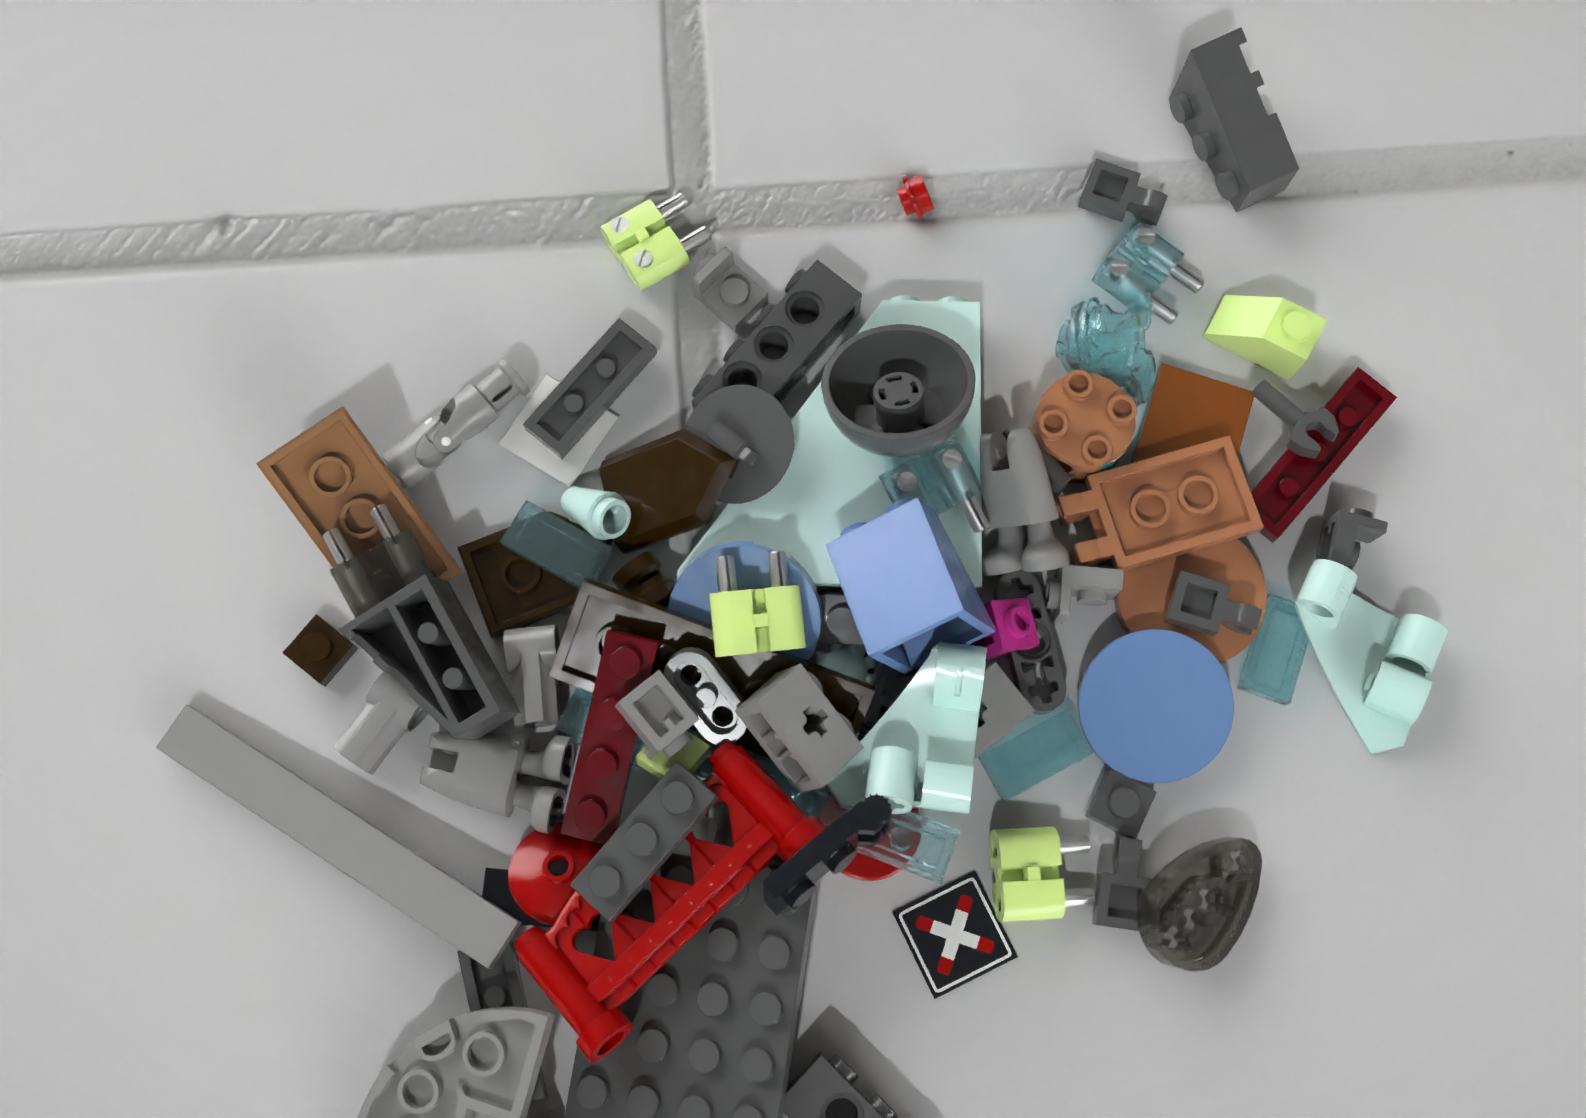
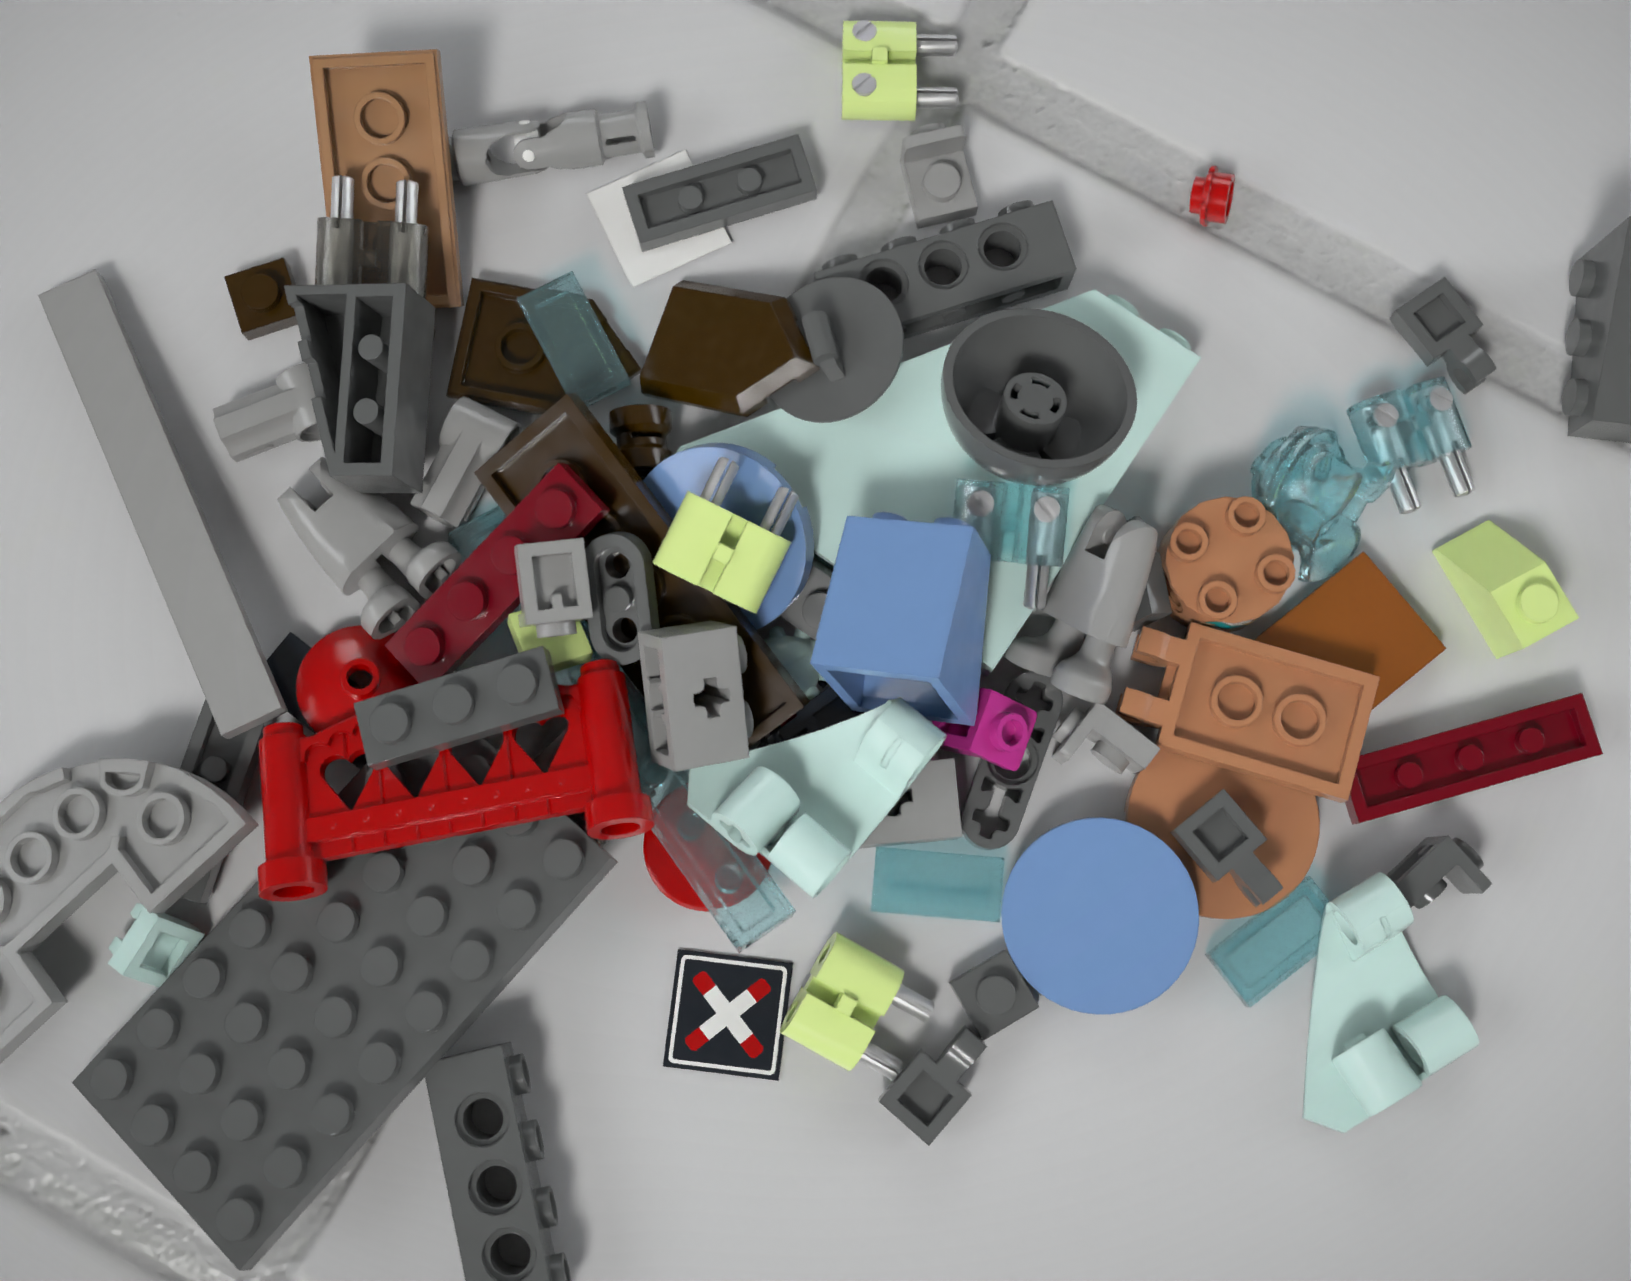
camera: 30 degrees right, 5 degrees up
(597, 511) = (639, 330): light aqua cone -> none
(828, 851) = (638, 841): black hinge -> none
(1178, 887) = (990, 1120): clear smoke piece -> none
(1297, 420) = (1469, 708): dark grey bar -> none

